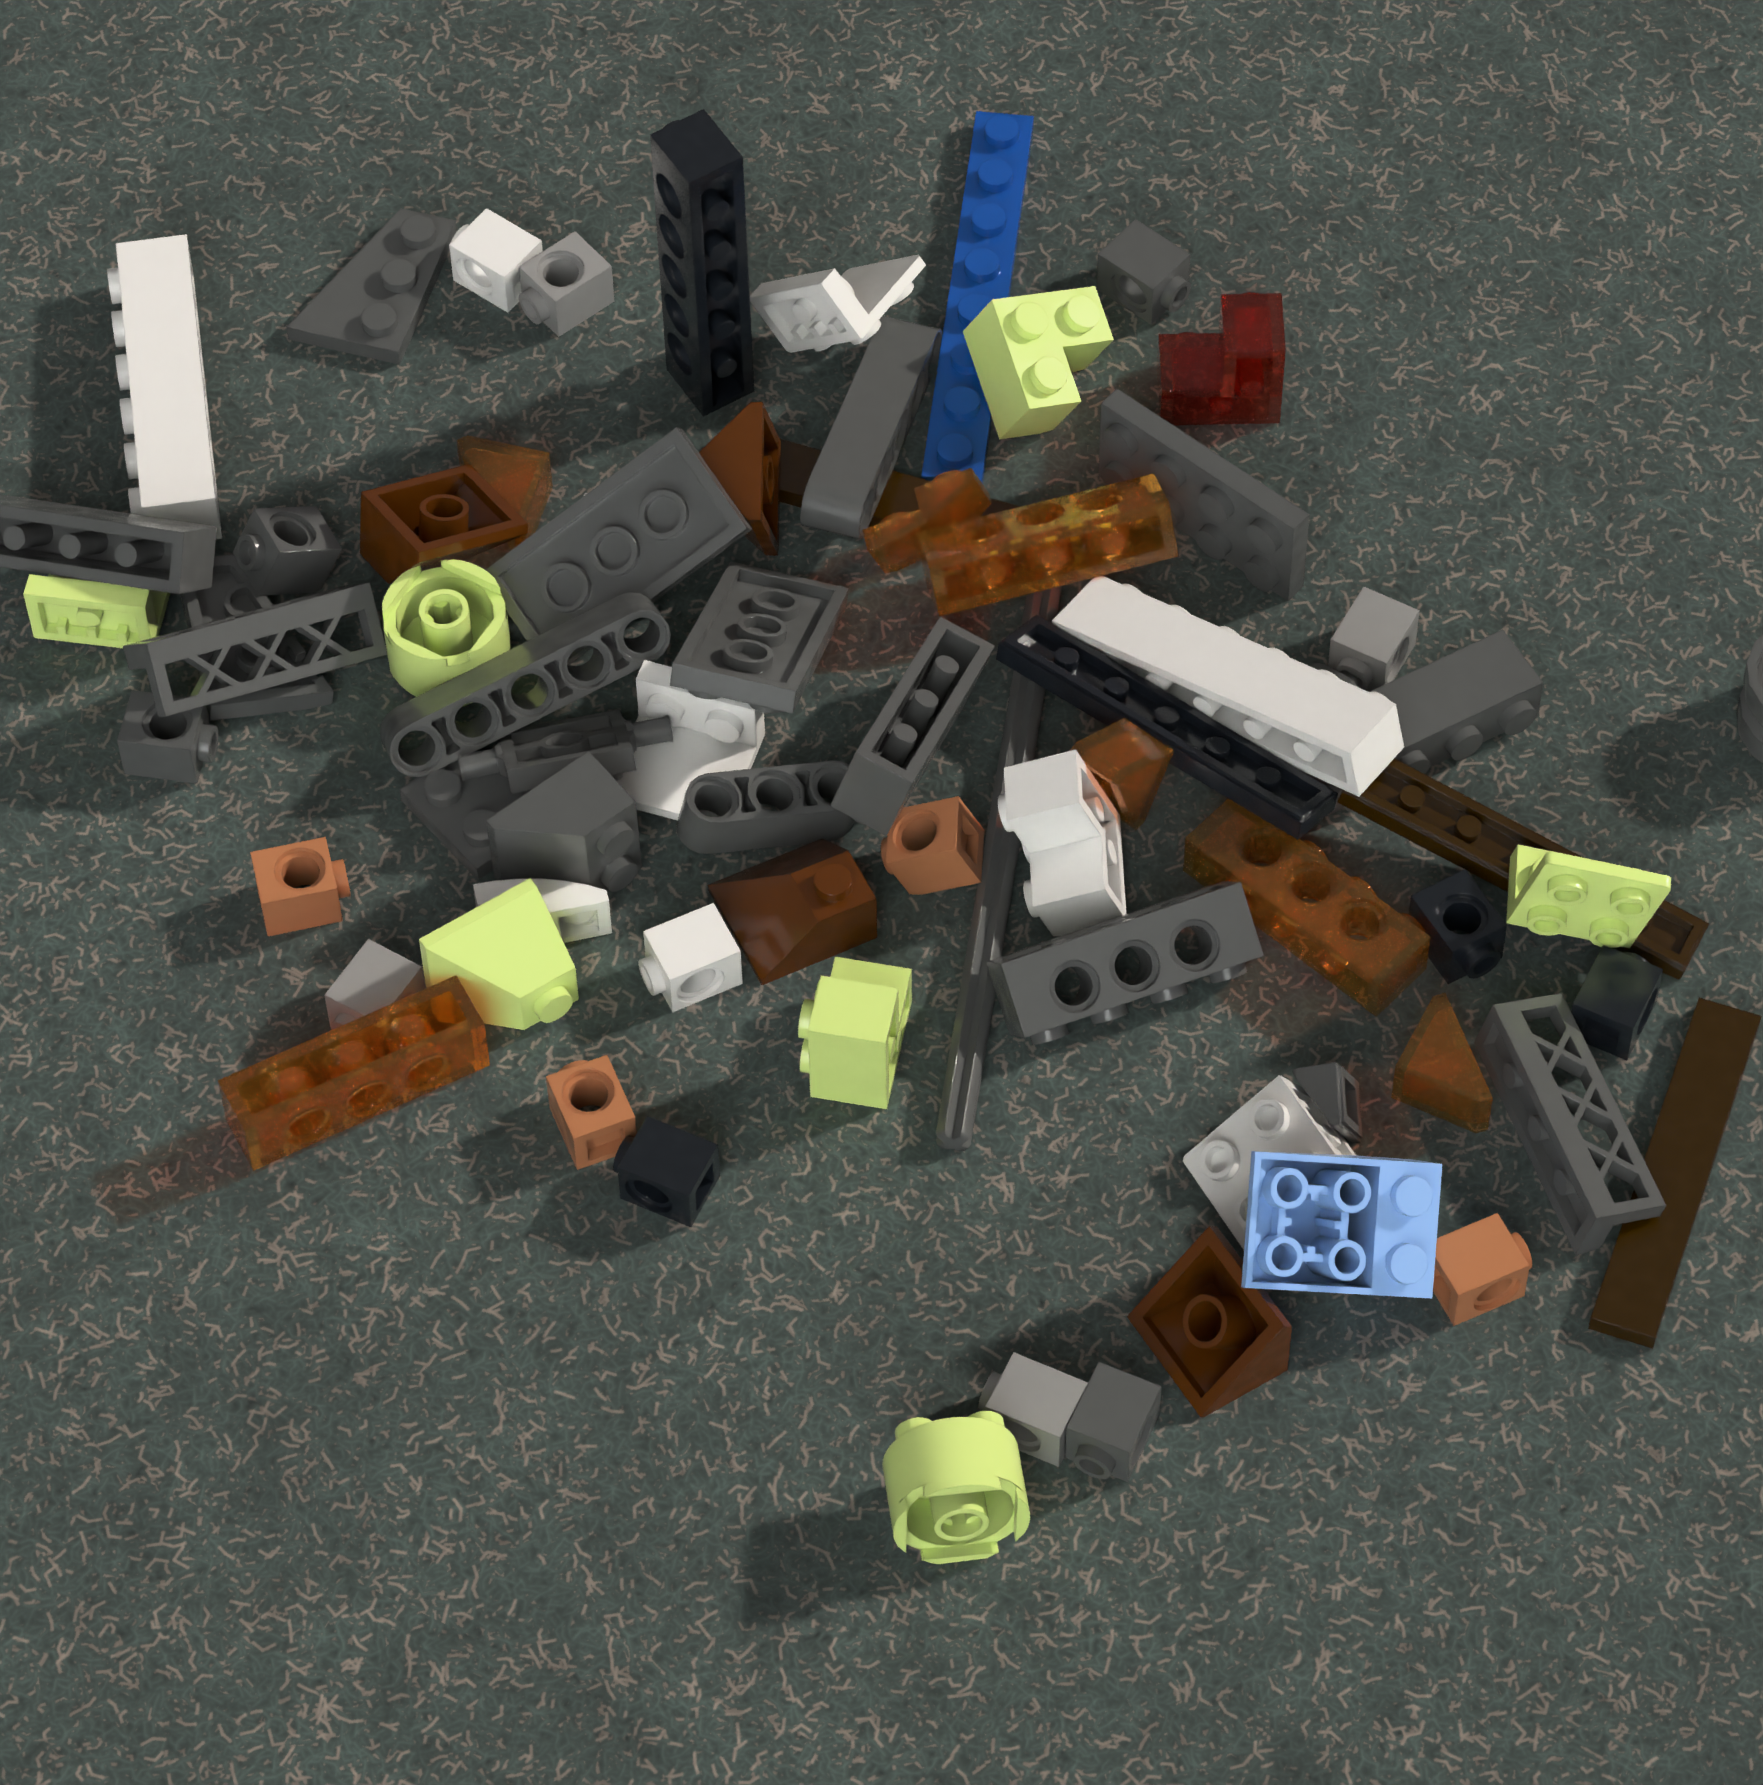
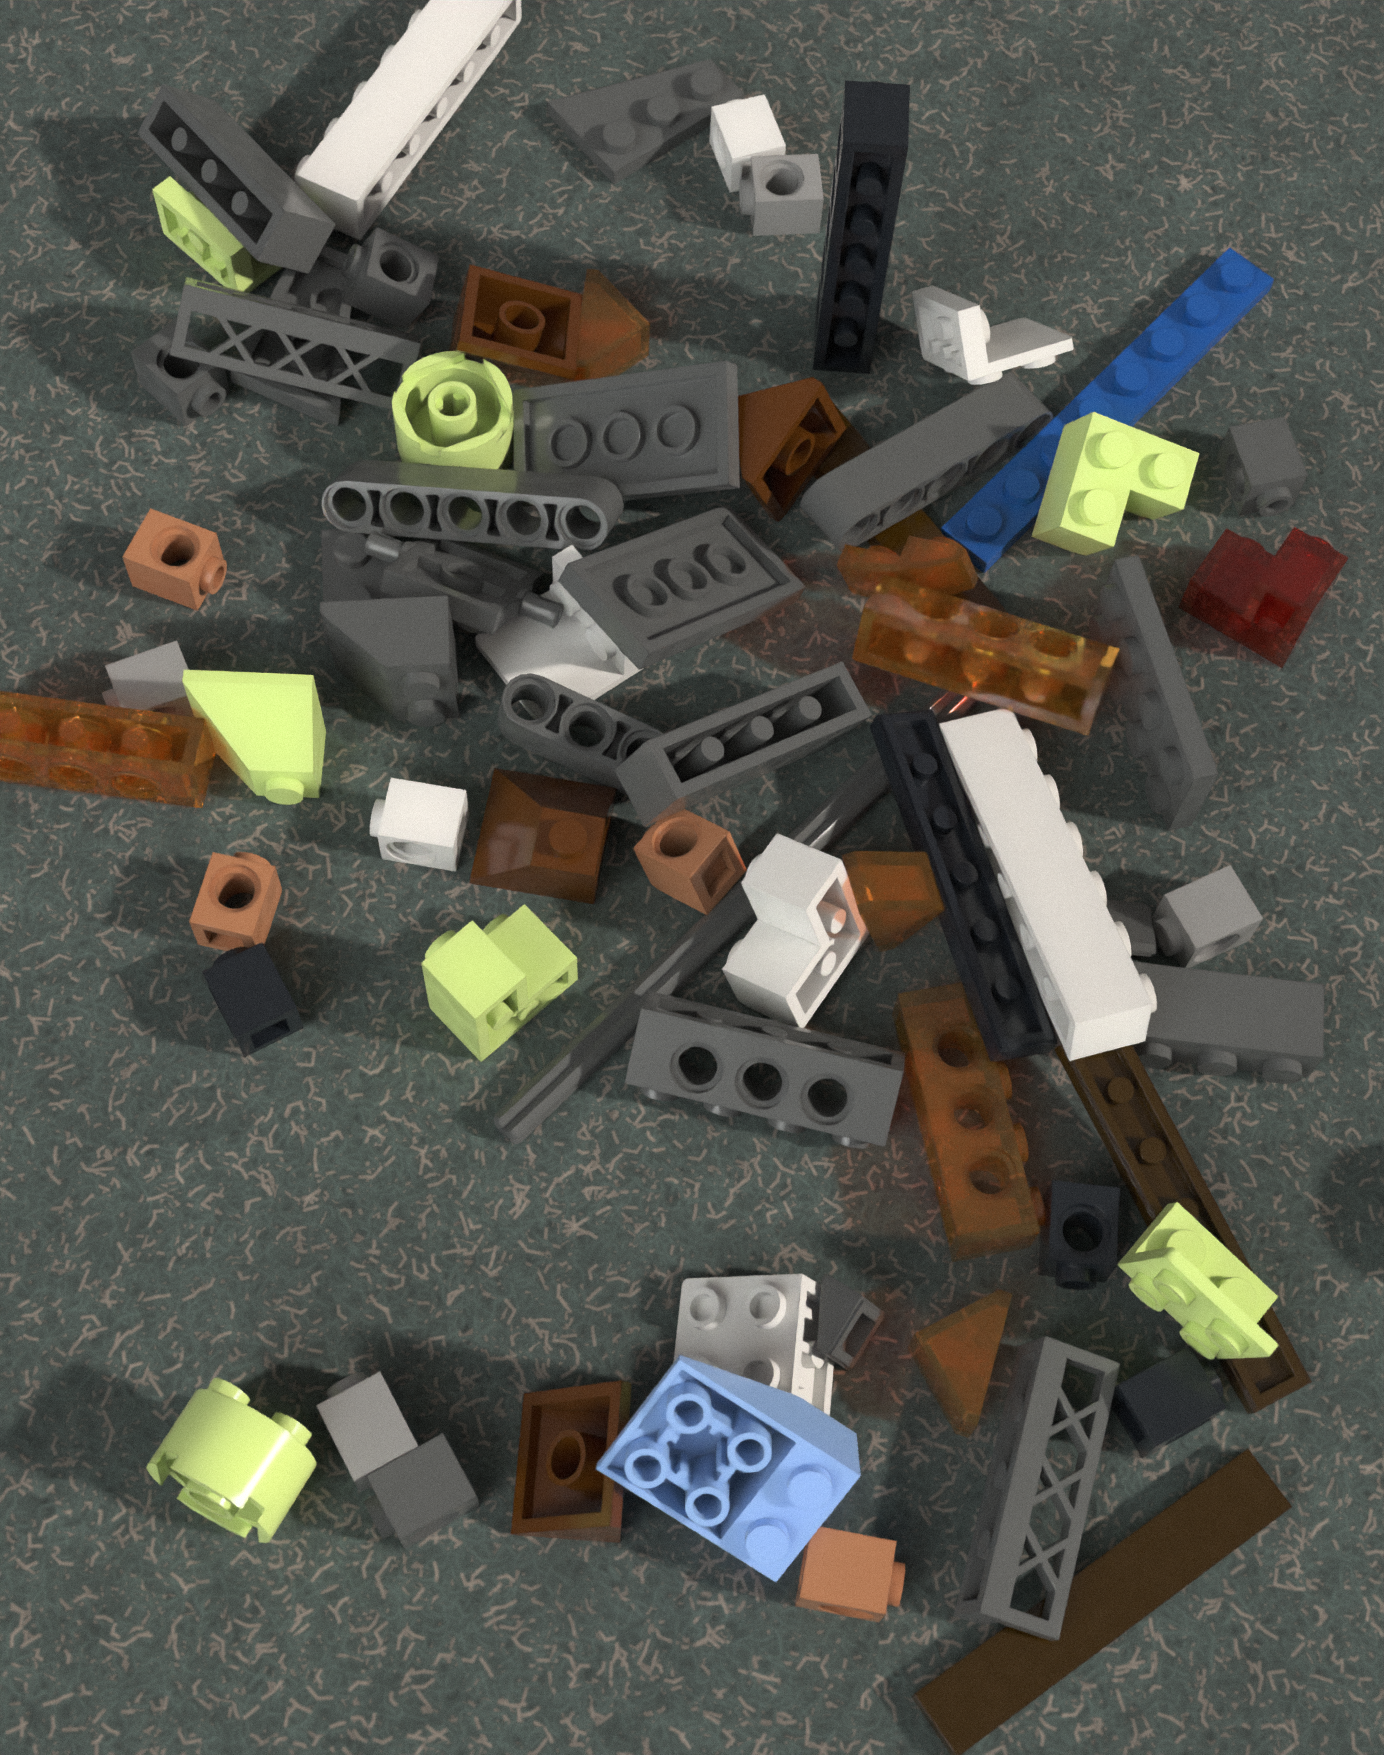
camera: 30 degrees right, 10 degrees up
(575, 907) = (351, 710): white slope -> none

